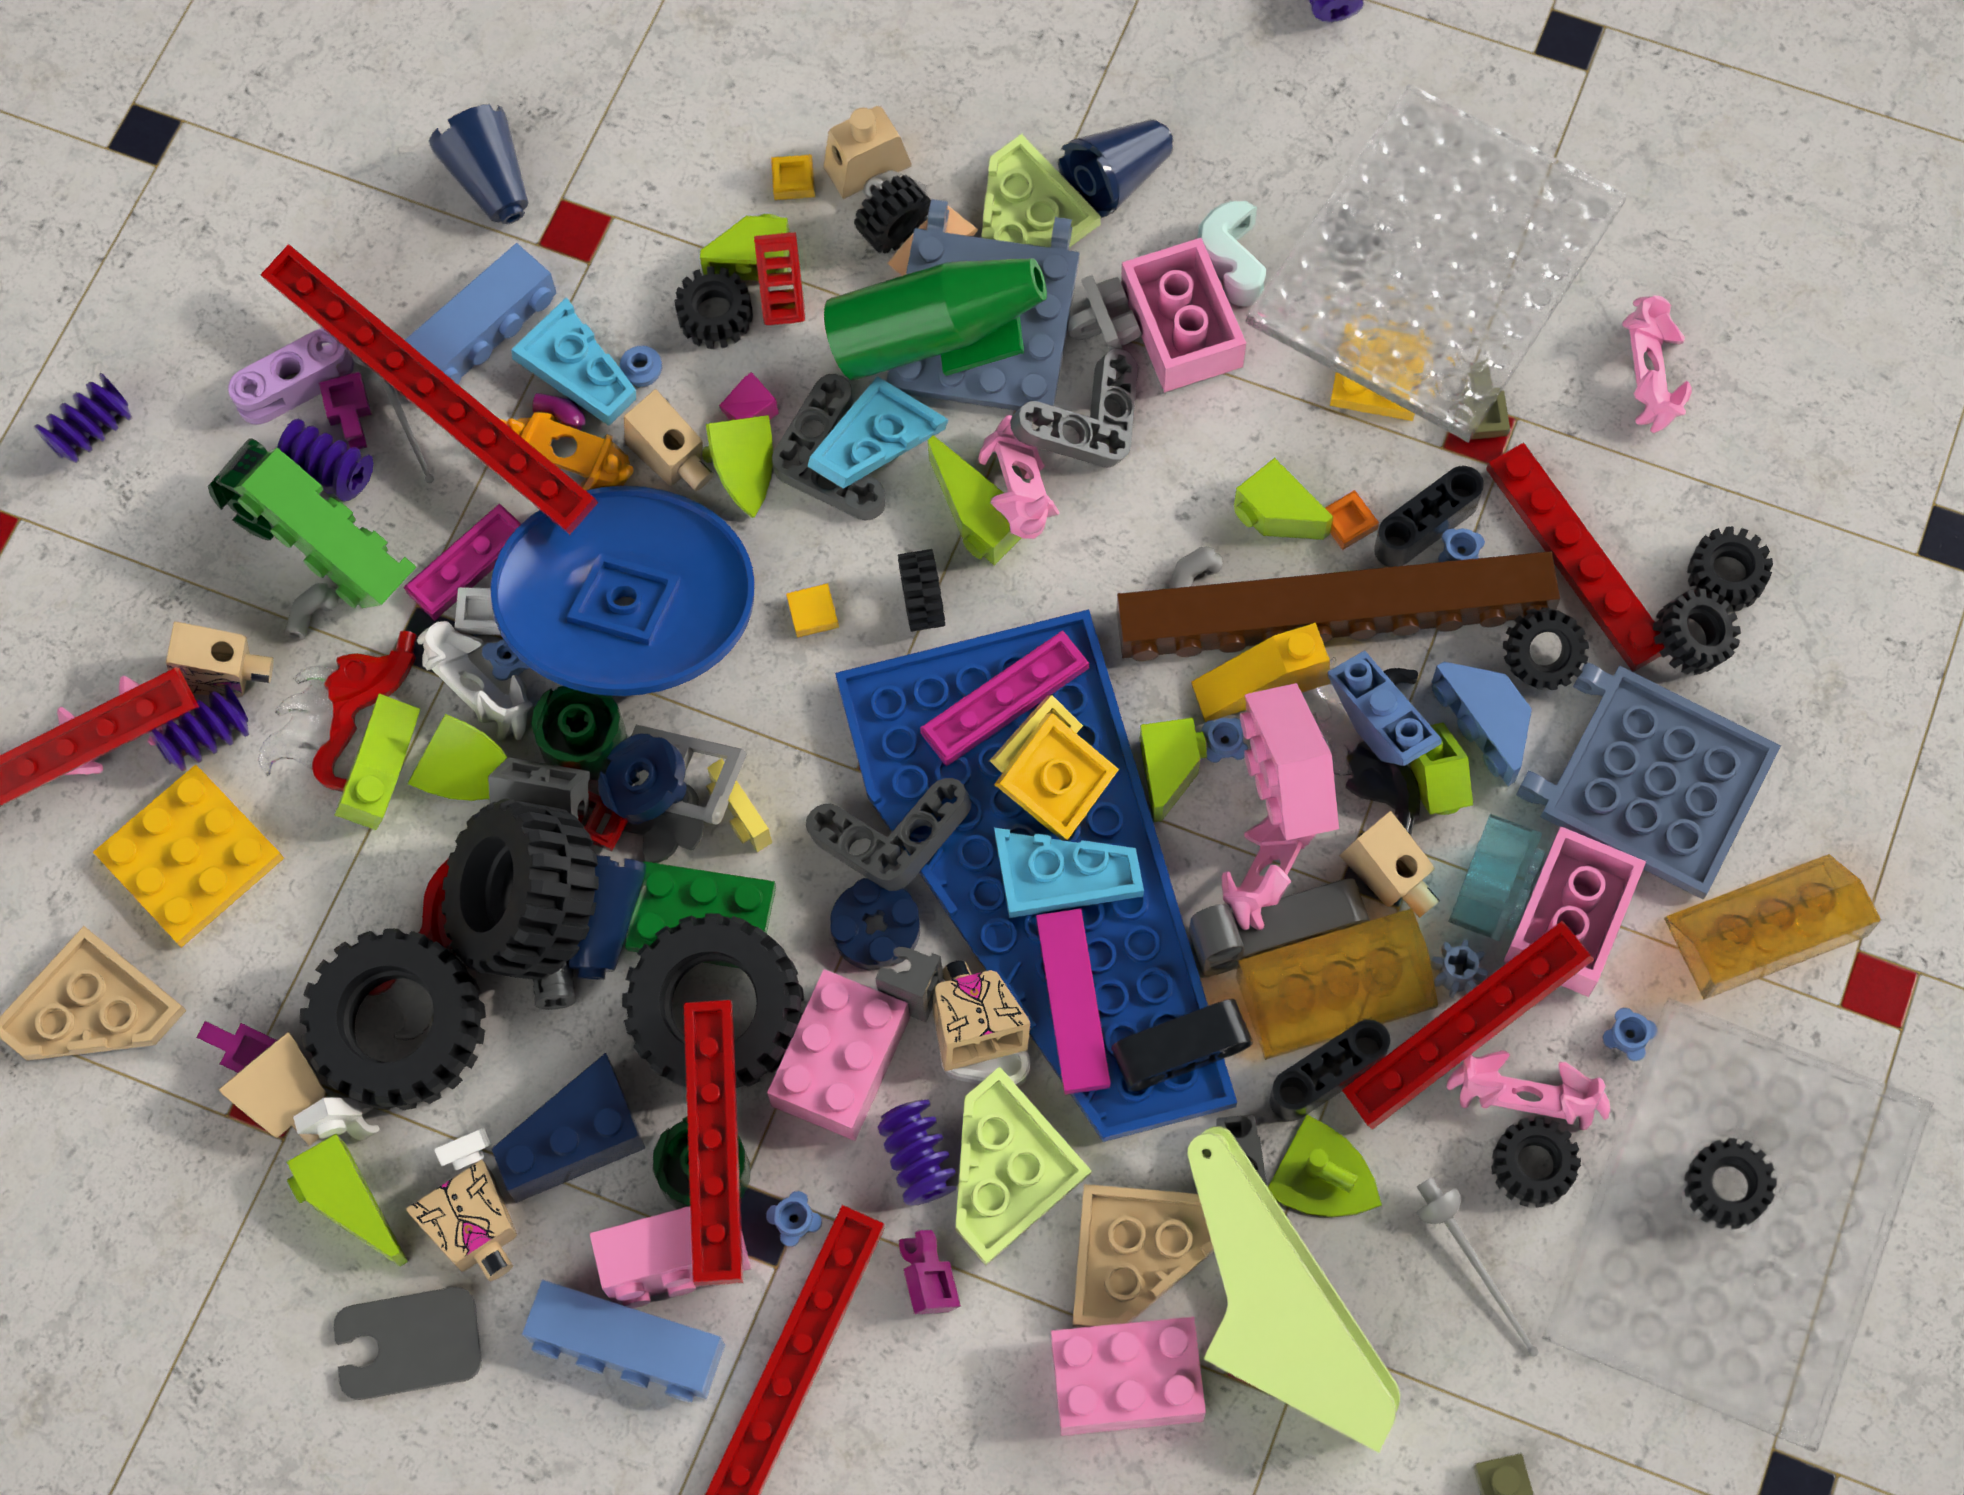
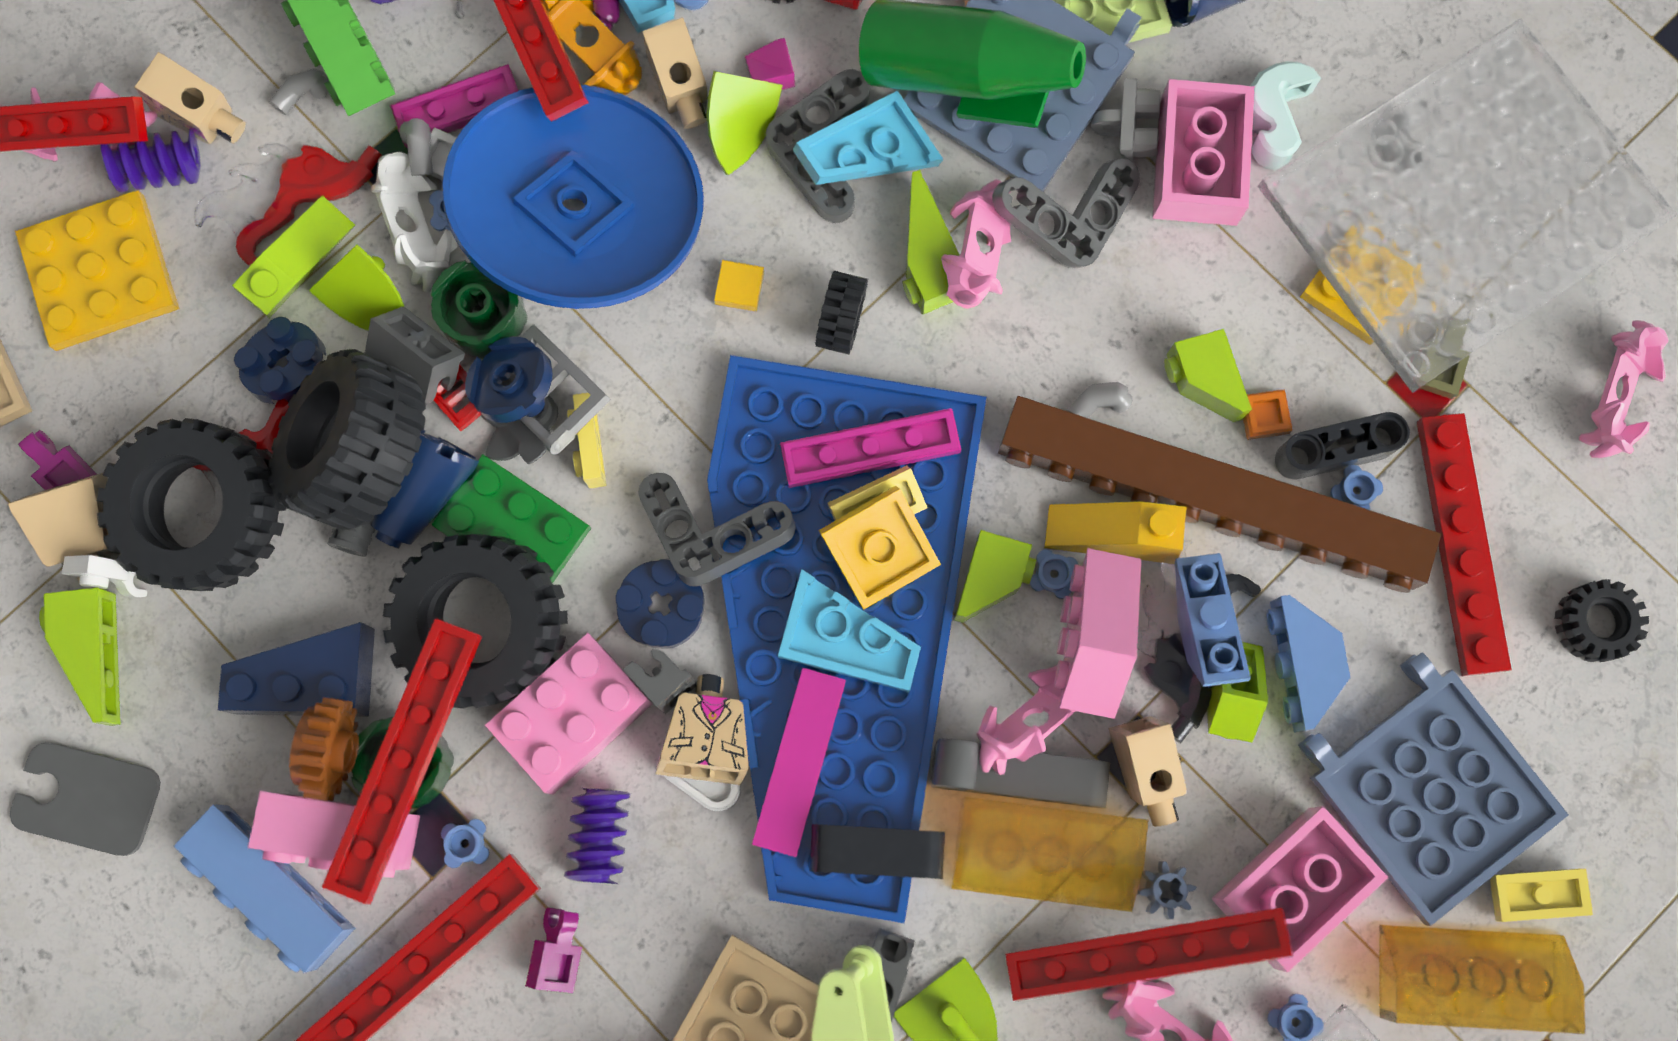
camera: 20 degrees right, 10 degrees up
(393, 847) = (263, 350): none -> dark blue plate
(447, 600) = (417, 136): none -> light grey arm
(464, 1150) = (198, 652): white plate -> none
(469, 1221) = (179, 718): tan torso -> none
(632, 1169) = (324, 748): none -> dark orange gear
(1009, 1166) = (673, 888): yellowish green plate -> none
(1309, 1068) = (1015, 941): black beam -> none
(1498, 878) = (1242, 825): clear light blue brick -> none
(1571, 654) = (1396, 648): black tyre -> none
(1712, 619) = (1561, 676): black tyre -> none
(1790, 826) = (1541, 895): none -> light yellow plate

